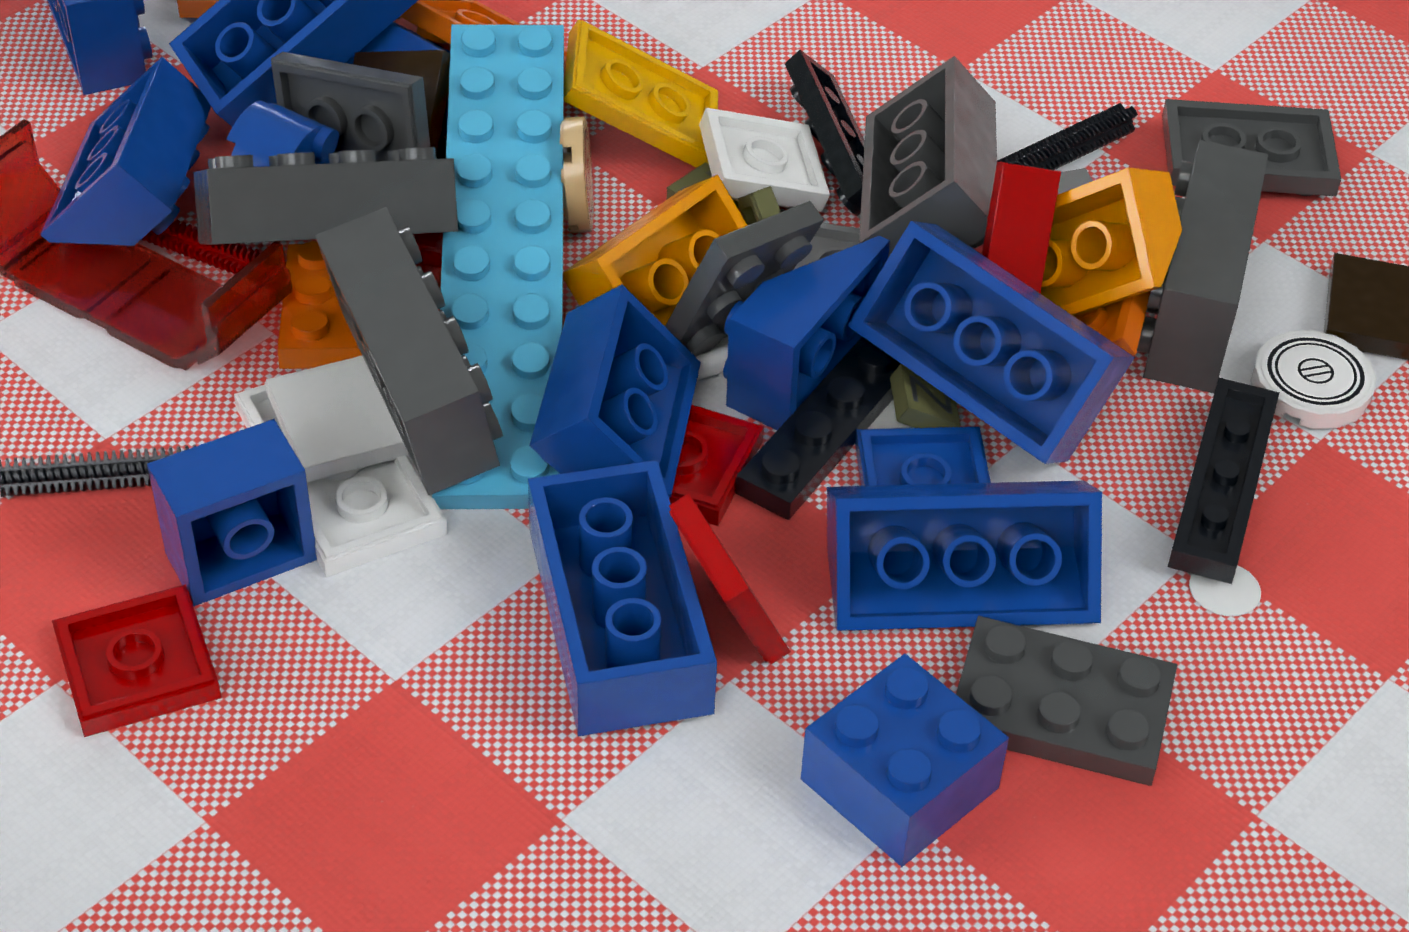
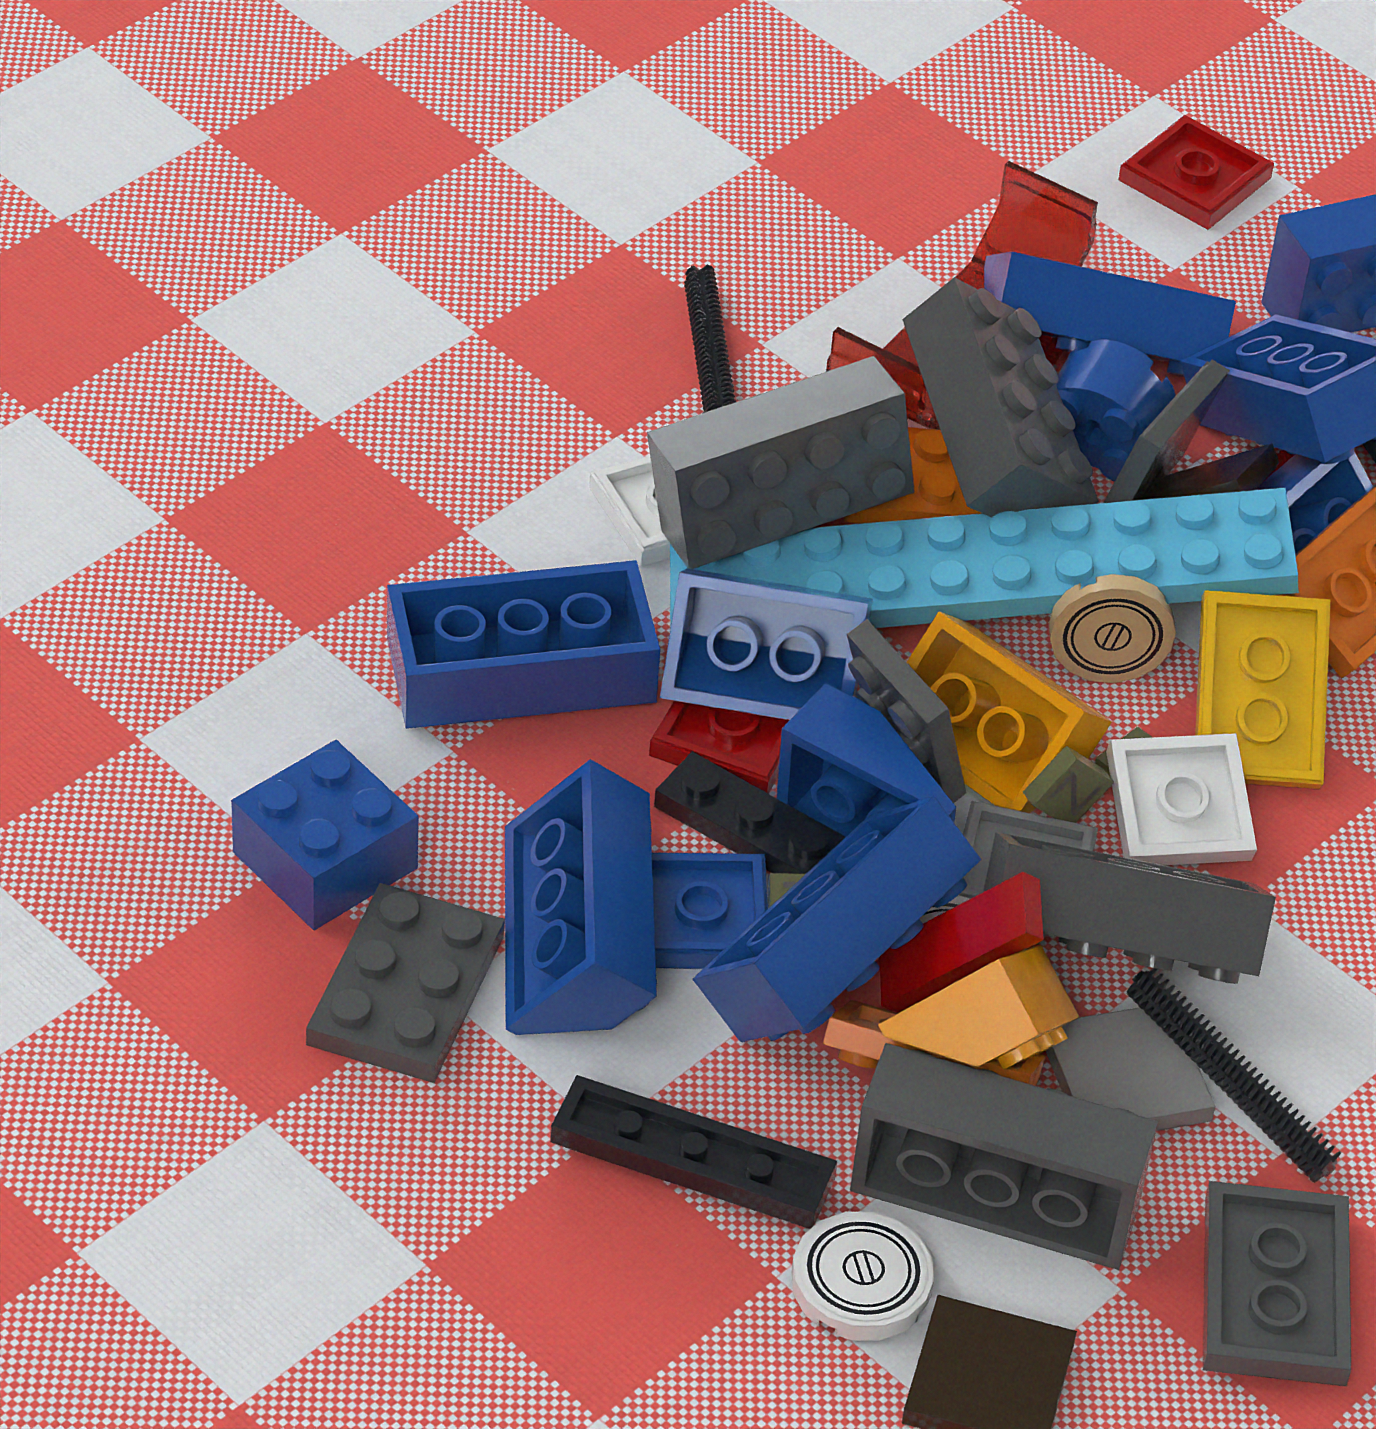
camera: 90 degrees right, 0 degrees up
(136, 660) = (491, 370): red tile -> none
(233, 511) = (616, 382): blue brick -> none
(728, 579) = (526, 711): red tile -> none
(831, 125) = (1288, 866): black plate -> none
(1227, 598) = (544, 1157): white sticker -> none

